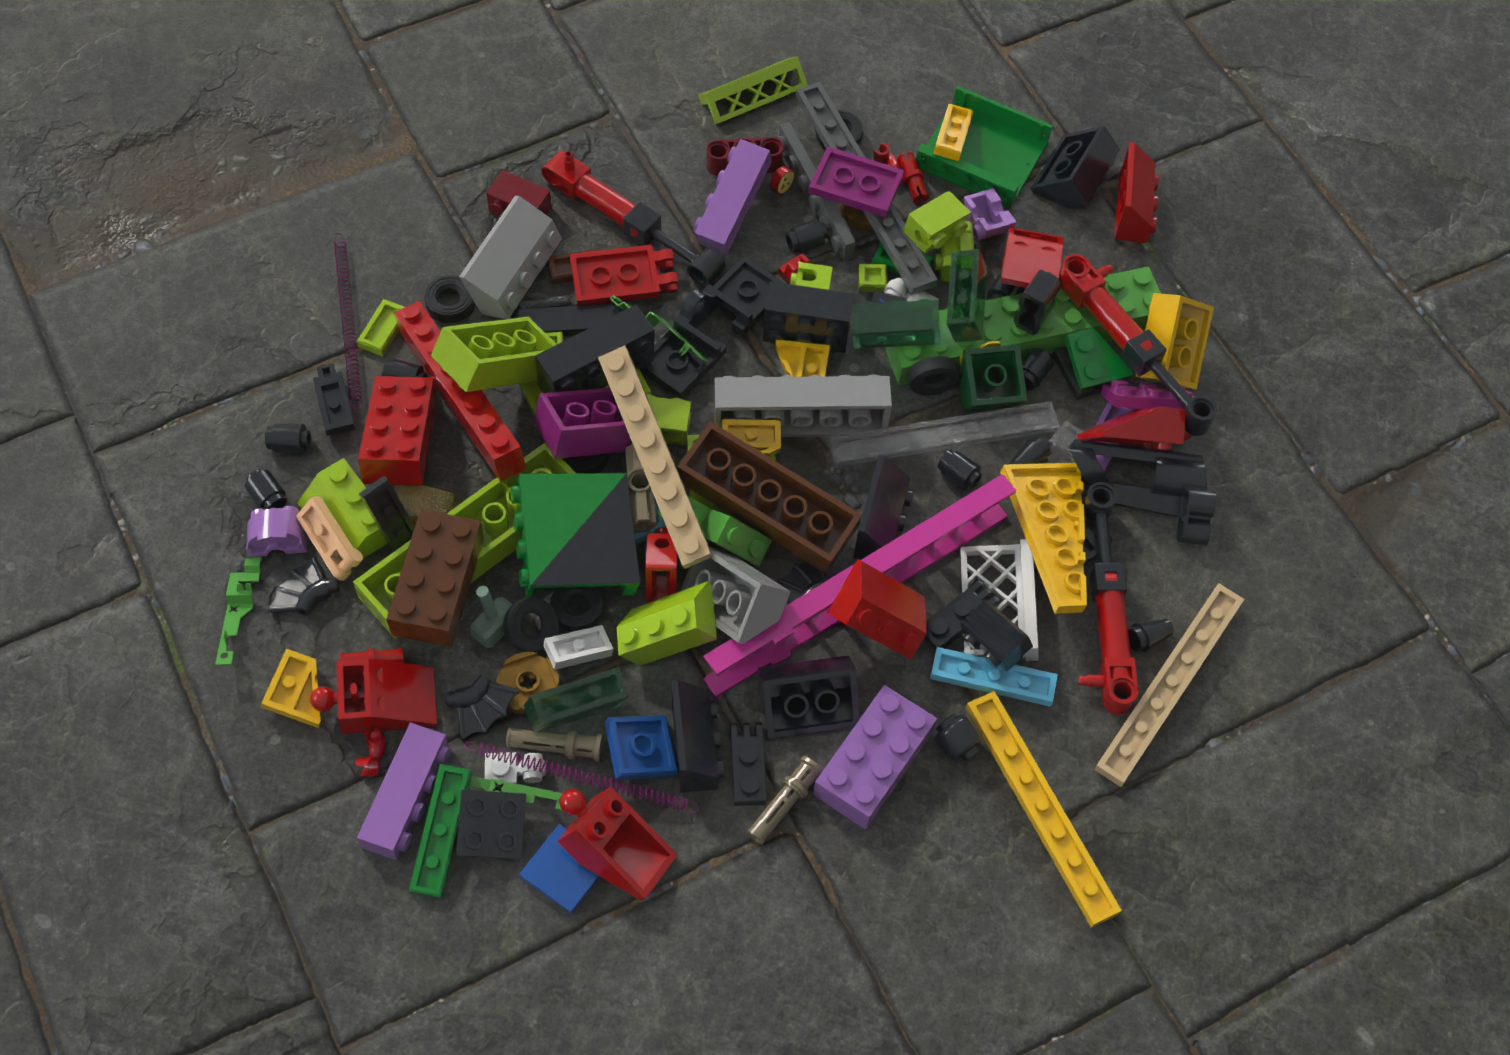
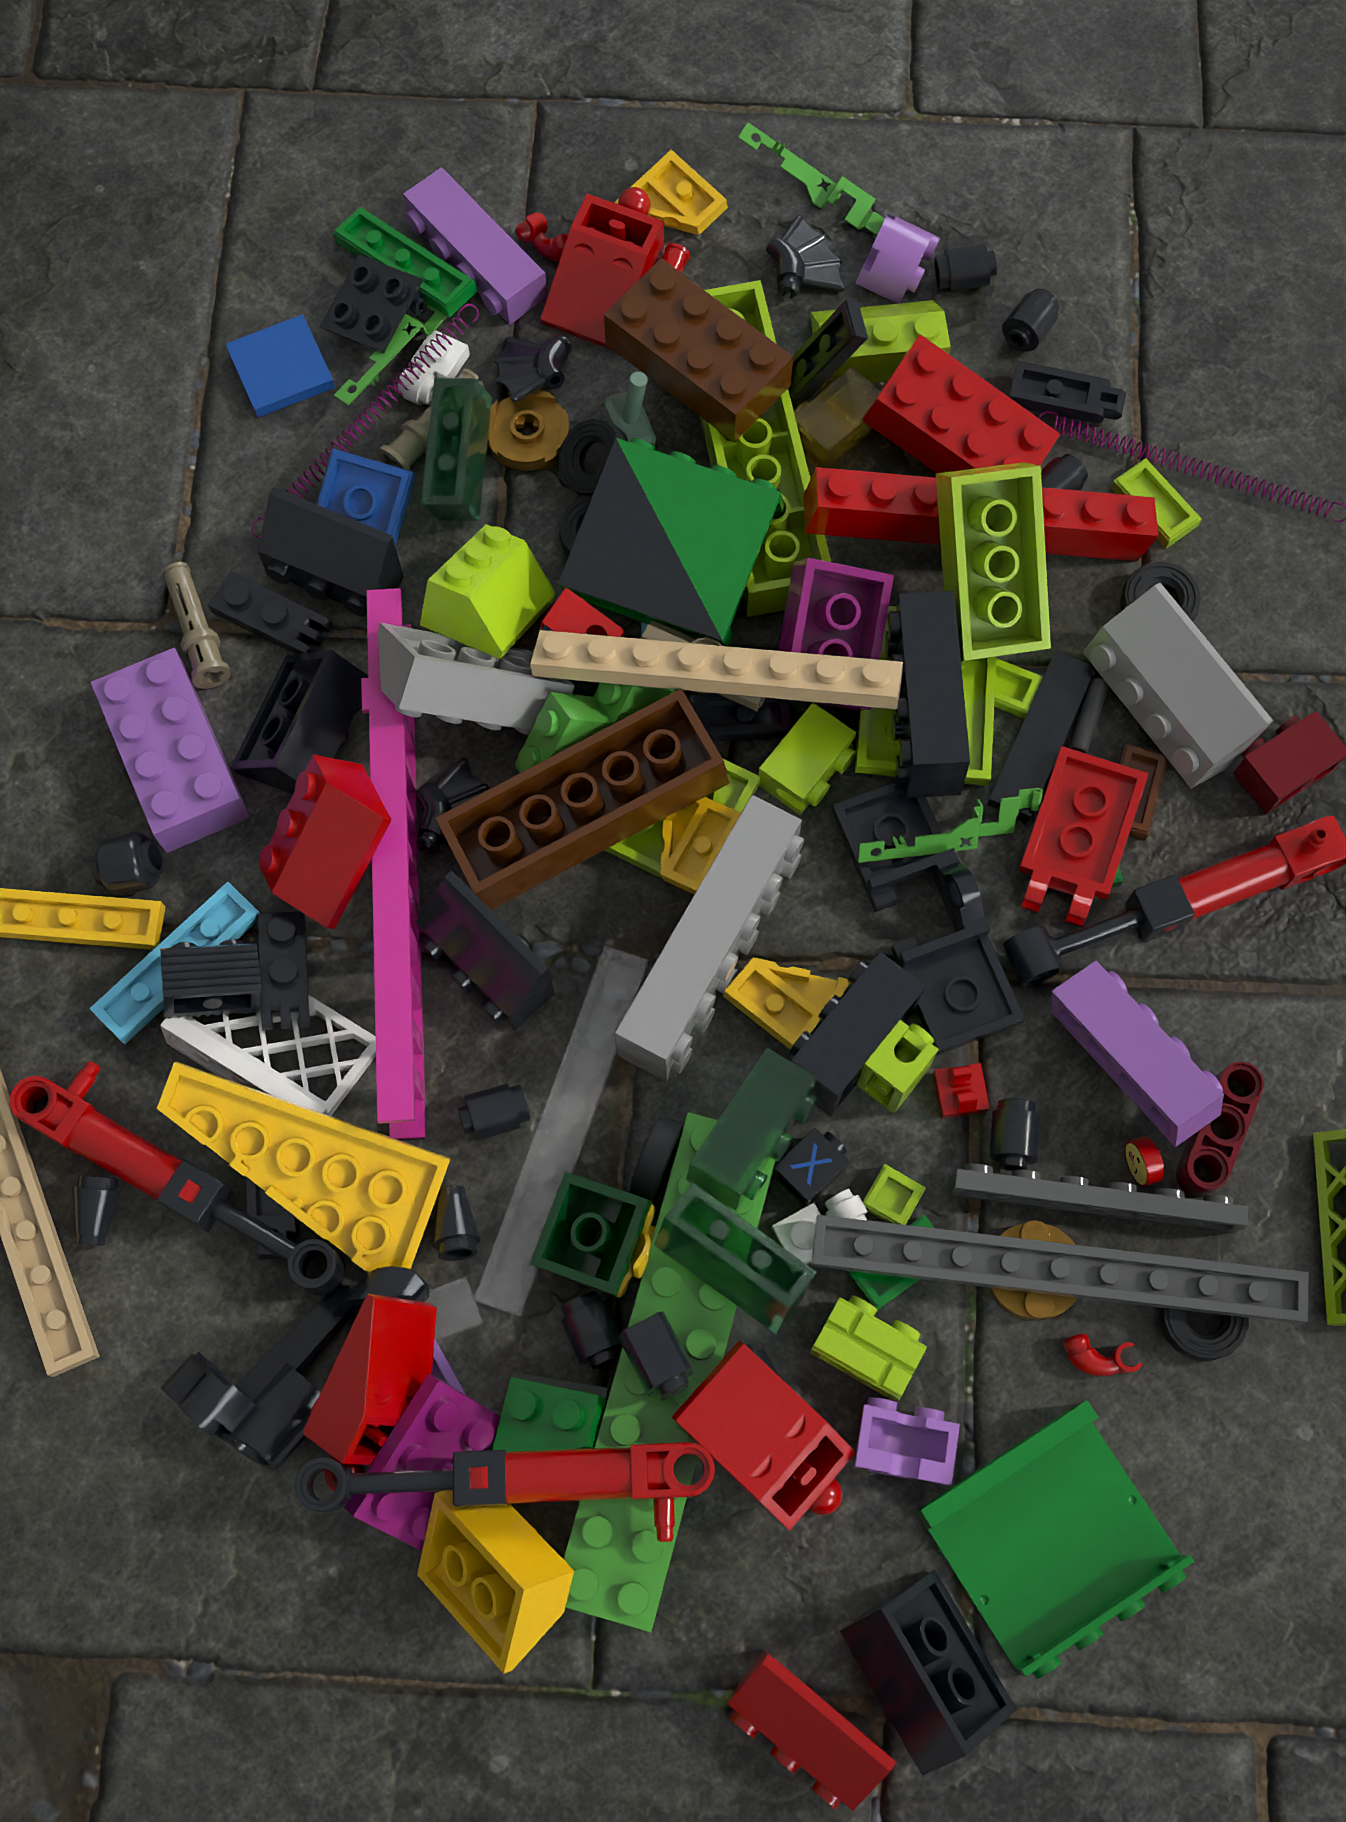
camera: 125 degrees right, 10 degrees up
(328, 538) = (882, 294): light nougat plate -> none
(578, 647) = (534, 497): white plate -> none
(624, 848) = (262, 412): red slope -> none
(856, 181) = (1057, 1241): magenta plate -> none
(913, 177) = (1048, 1376): red pin -> none
(937, 222) = (910, 1321): lime brick -> none
(953, 132) = (1100, 1493): yellow tile -> none

